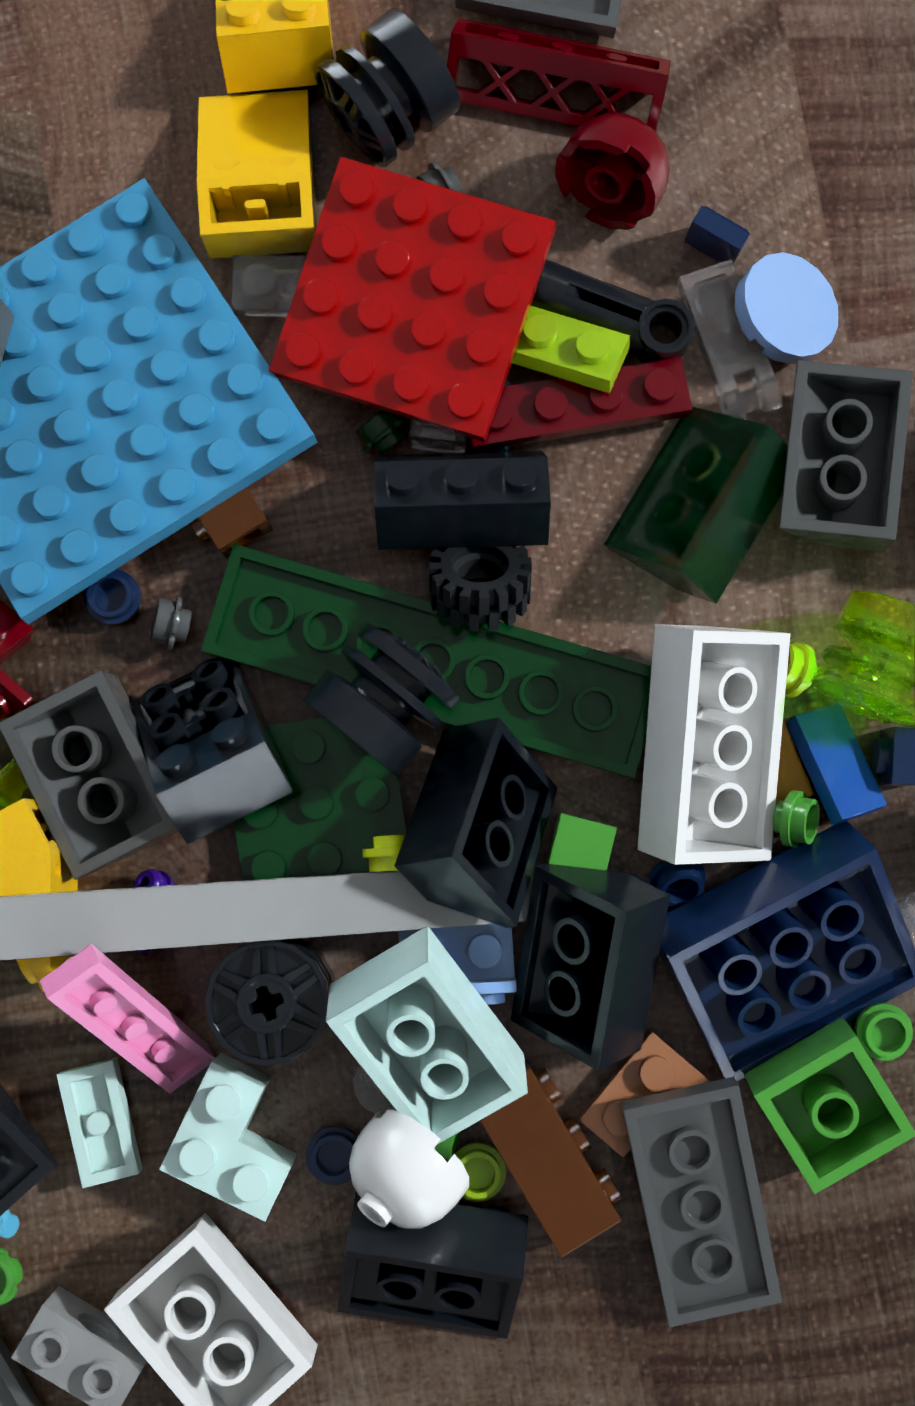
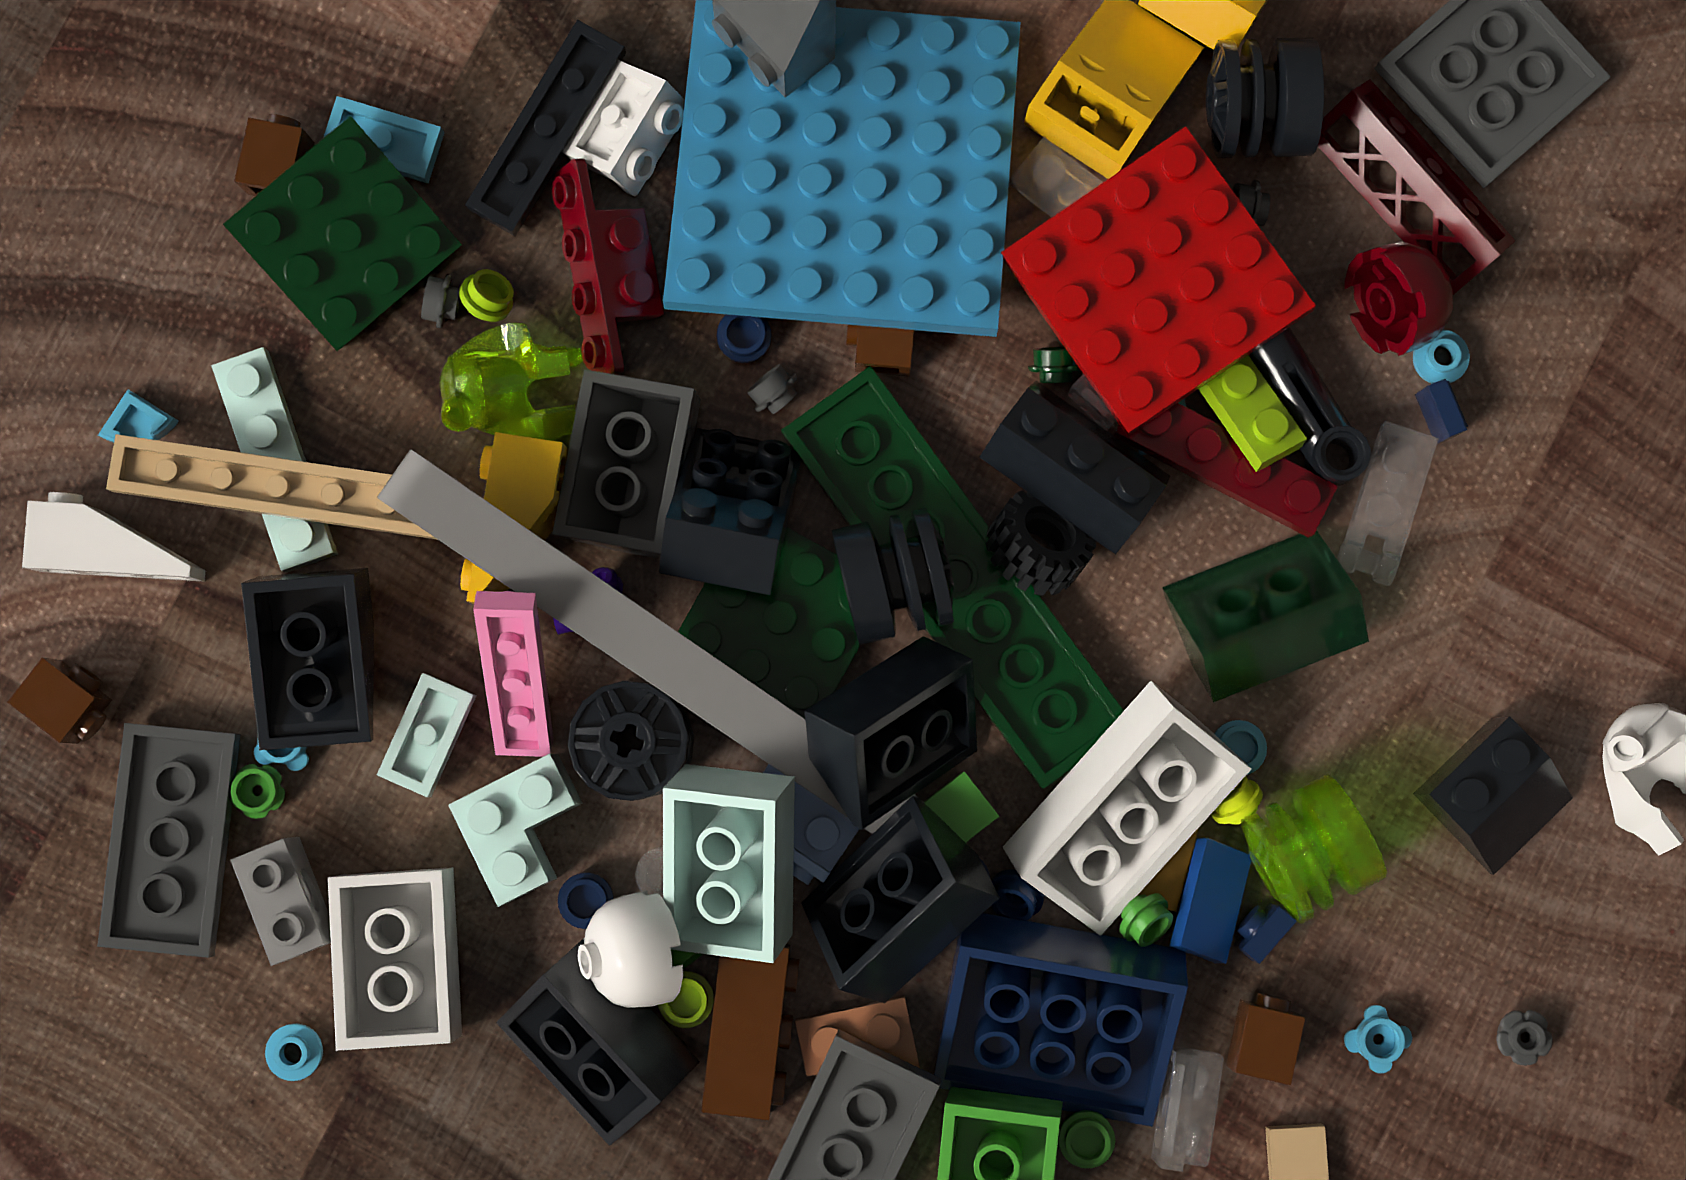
camera: 45 degrees right, 0 degrees up
(384, 853) = (803, 696): neon yellow plate -> none
(684, 210) = (1431, 370): none -> medium azure plate
(763, 615) = (1245, 741): none -> medium azure plate
(786, 307) = (1453, 511): light blue tile -> none
(846, 455) = (1406, 662): dark grey slope -> none

